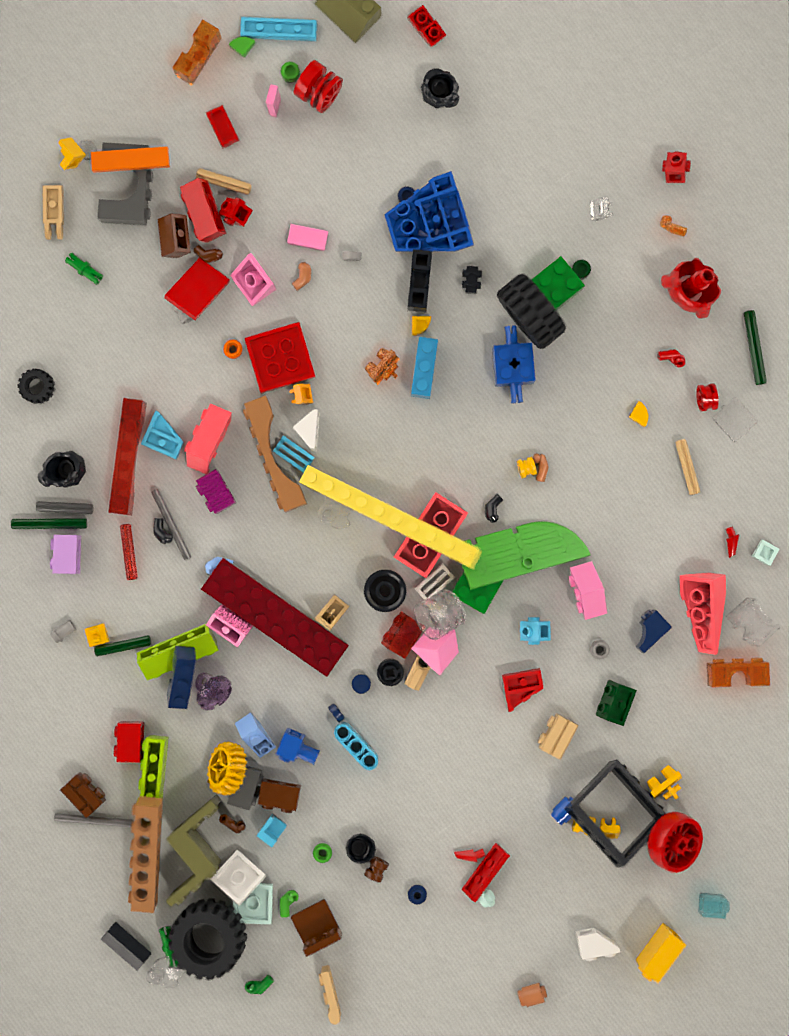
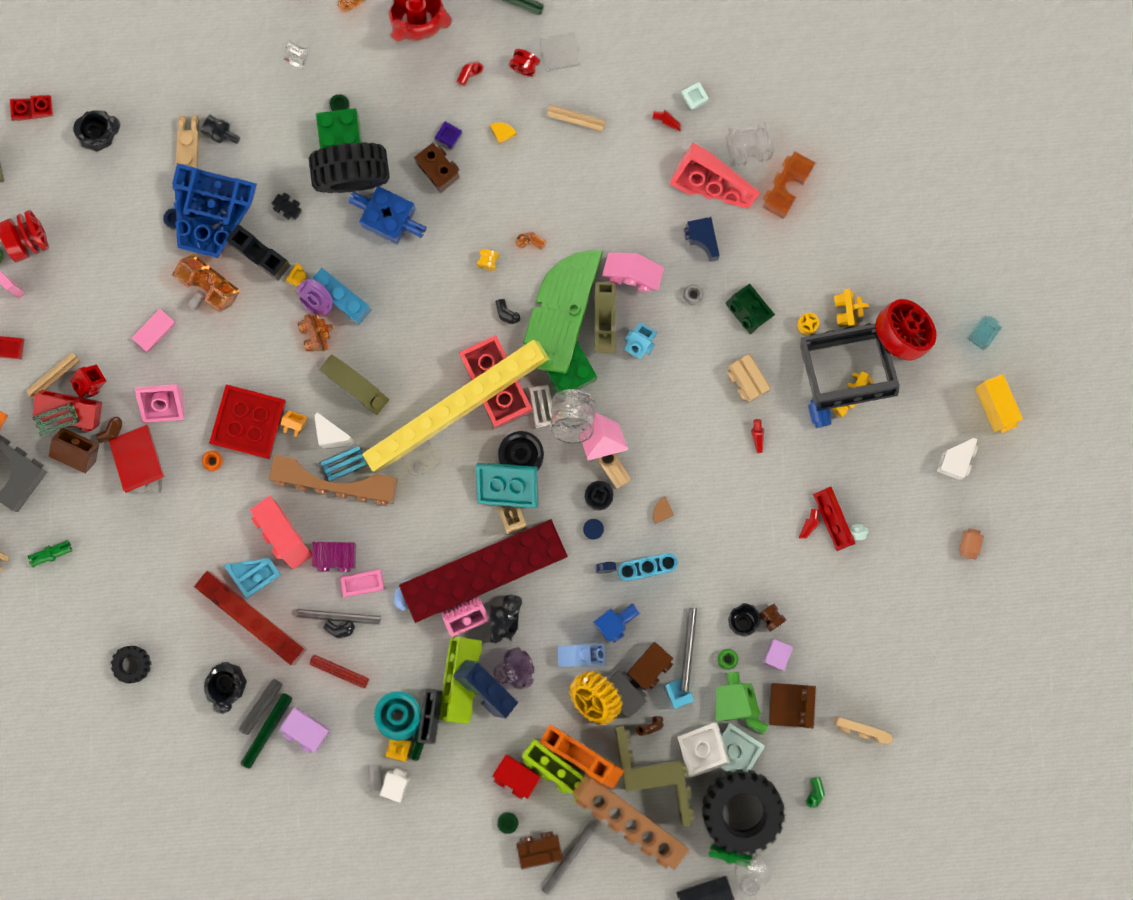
camera: 65 degrees left, 5 degrees down
(66, 651) = (395, 784): none -> white slope
(91, 755) = (507, 822): none -> dark green tile
(111, 611) = (388, 706): none -> teal wheel
(135, 648) = (434, 716): none -> black piece
(172, 802) = (581, 756): none -> orange arch
(177, 197) = (40, 424): none -> clear green tile
(208, 526) = (362, 583): none -> bright pink tile
(246, 657) = (504, 618): none -> black piece
(292, 880) = (736, 700): none -> bright green torso
(304, 276) = (187, 354): nougat arm -> none
(311, 817) = (688, 649): none -> flat silver bar
(349, 891) = (777, 654): none -> lavender panel
(353, 595) = (507, 485): none -> teal tile
(360, 422) = (354, 384): none -> olive arch
(373, 240) = (195, 272): none -> clear orange arch
(402, 635) = (571, 464): clear red bracket -> none
(409, 729) = (662, 510): none -> medium nougat tile
(411, 349) = (315, 297): none -> medium lavender tile
(417, 888) = (811, 594): dark blue plate -> none
(474, 168) = (187, 142): none -> tan hinge
(500, 186) = (218, 130): none -> black piece
(518, 769) = (758, 435): none -> red bar
(521, 686) = (684, 384): red wing -> none
(535, 591) = (605, 317): none -> olive arch
(540, 459) = (490, 243): nougat arm -> none
(565, 490) = (528, 238): none -> clear orange arm
(577, 380) = (437, 167): none -> reddish brown brick
(610, 372) = (448, 135): none -> dark purple tile
(635, 759) = (809, 320): none -> yellow wheel

